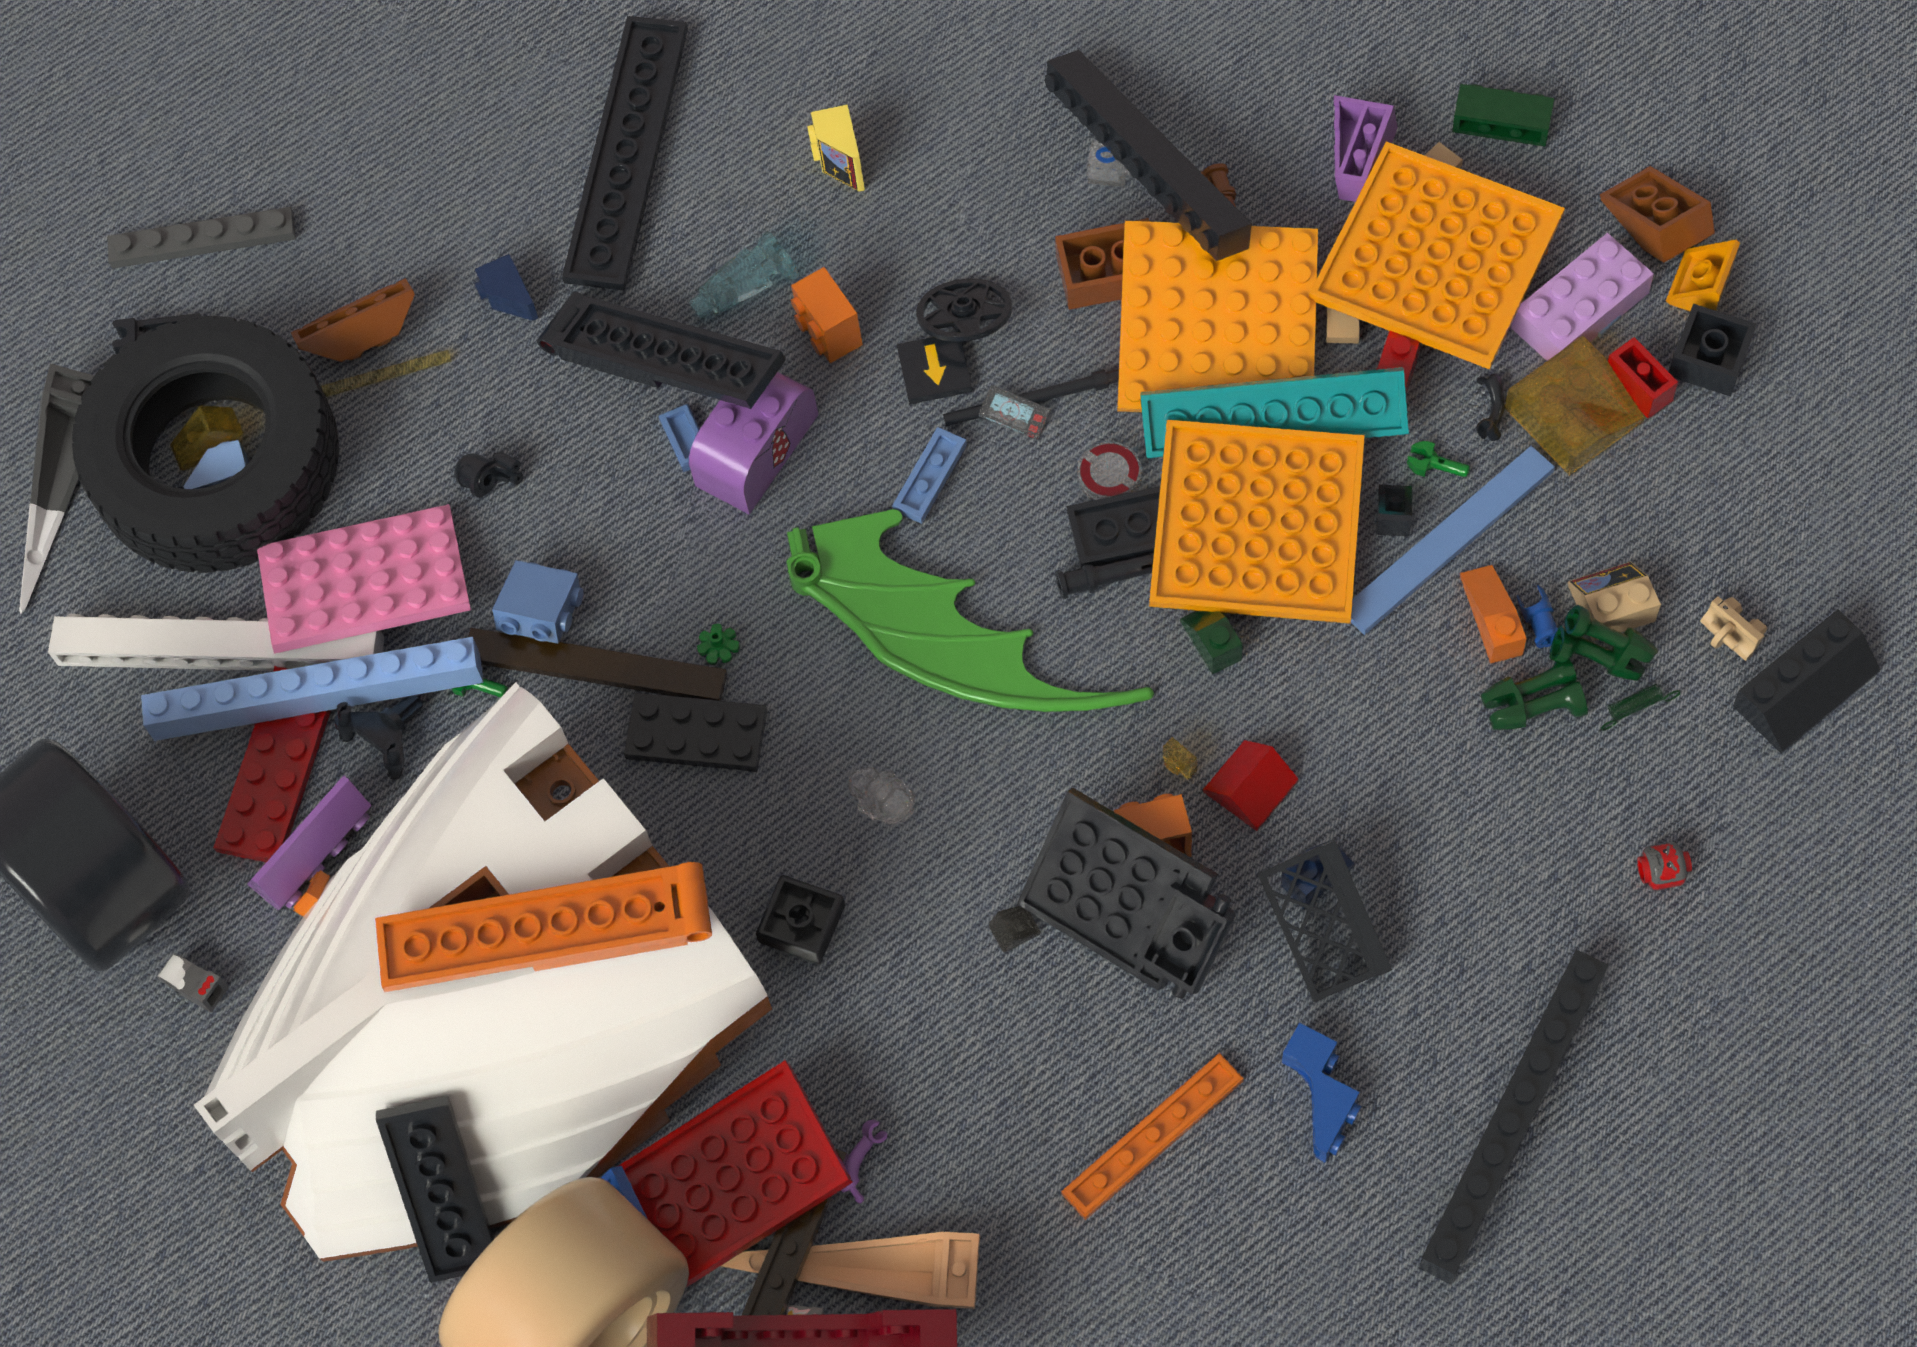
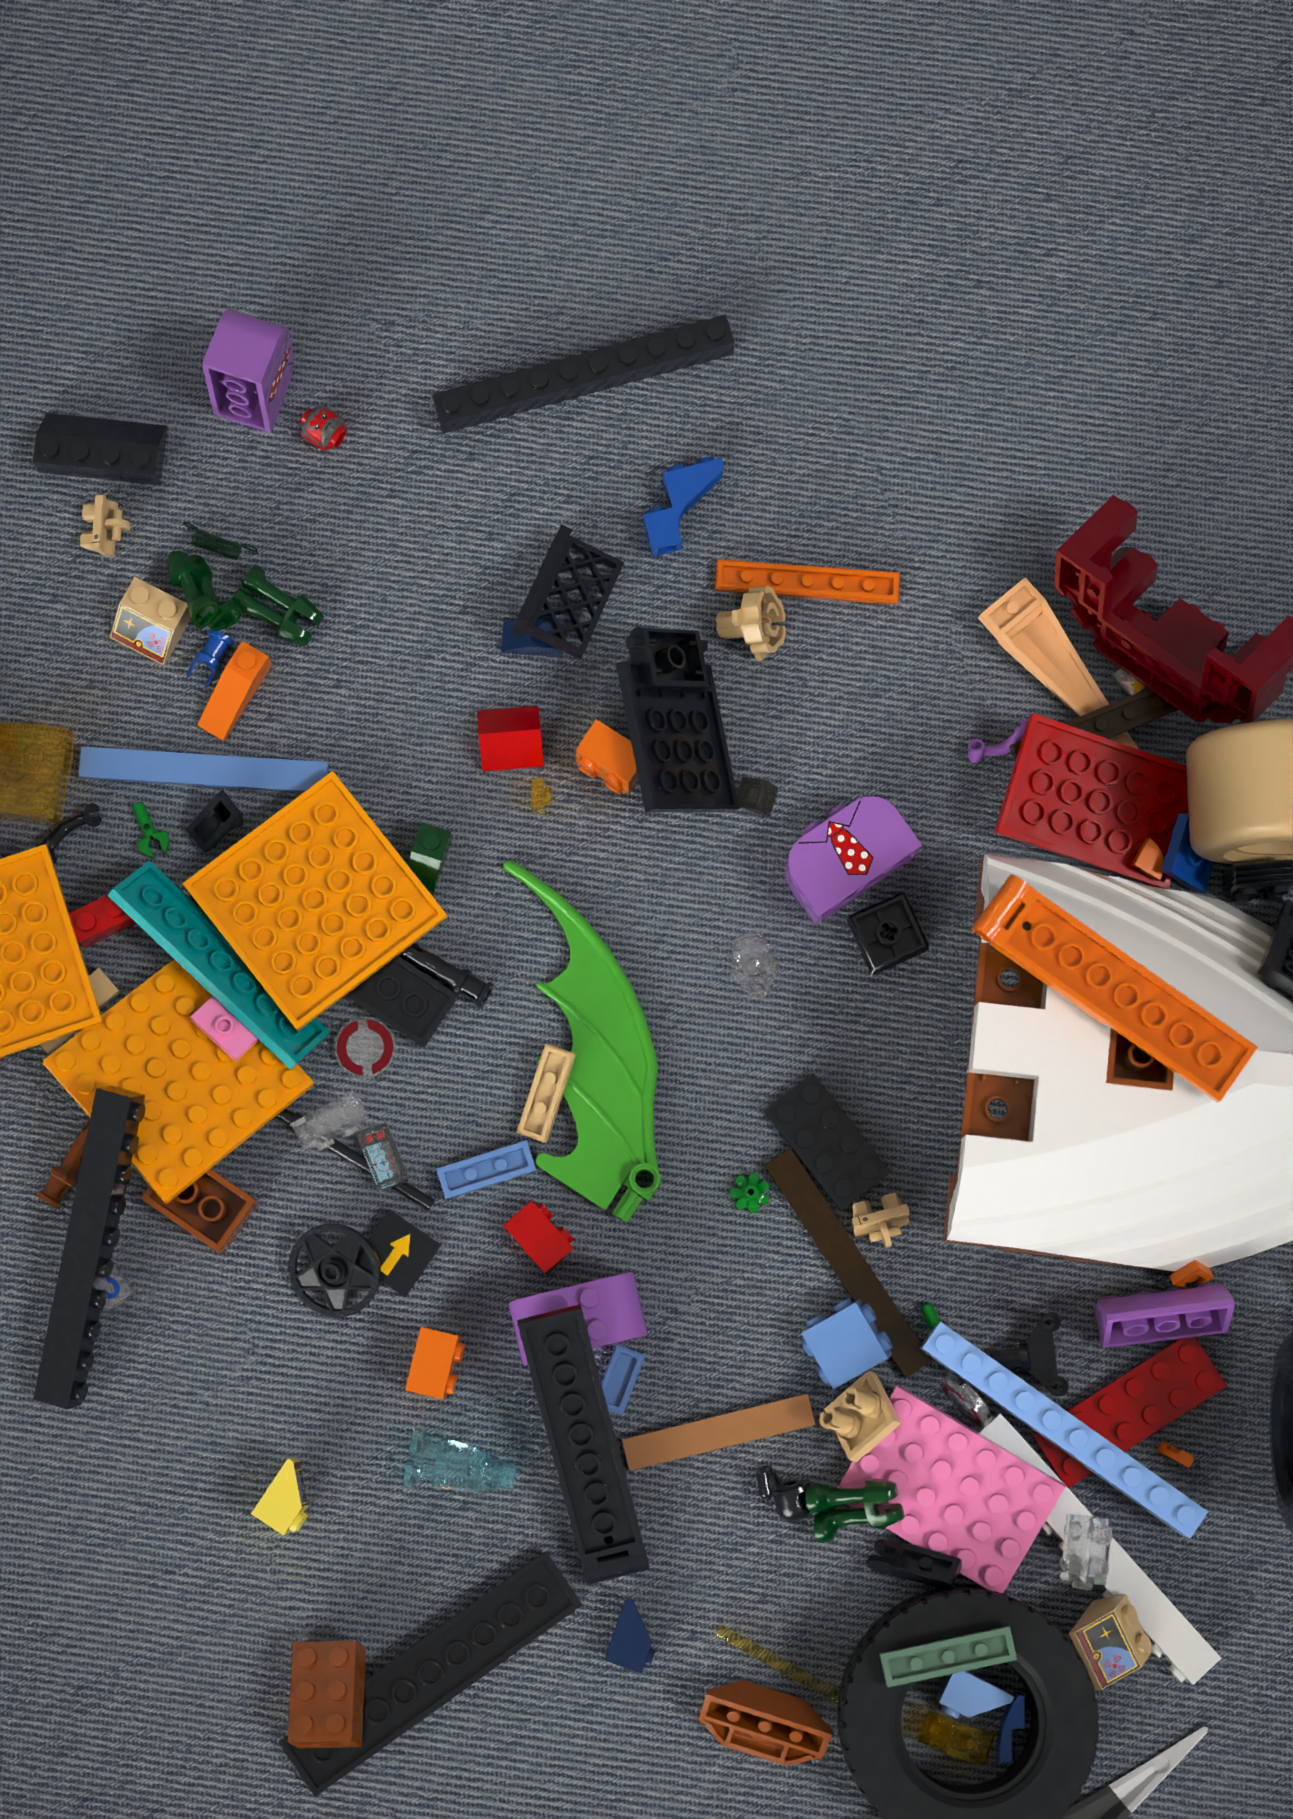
camera: 145 degrees left, 15 degrees up
(144, 583) = (1110, 1640): none -> slope
(171, 475) = (1012, 1718): none -> blue slope
(209, 763) = (1178, 1456): none -> orange tile
(216, 619) = (1086, 1550): none -> clear brick
(251, 443) = (948, 1656): none -> sand green plate
(338, 509) = (915, 1564): none -> black hinge
(400, 639) = (966, 1400): none -> clear tile
(439, 490) = (828, 1521): none -> dark green piece
(477, 559) = (861, 1416): none -> tan plate
(576, 471) = (718, 1432): none -> medium nougat tile
(592, 727) = (880, 1224): none -> tan hips
(643, 1172) = (1149, 860): none -> orange tile
(680, 67) = (327, 1694): none -> dark orange brick
(842, 467) = (539, 1236): none -> red brick
(889, 940) = (848, 855): none -> medium lavender brick
(941, 562) = (546, 1092): none -> tan tile
(1075, 393) = (330, 1120): none -> clear brick
(1154, 1049) = (754, 620): none -> tan piece
(1218, 370) = (223, 1029): none -> bright pink plate
(1767, 828) = (248, 369): none -> medium lavender brick

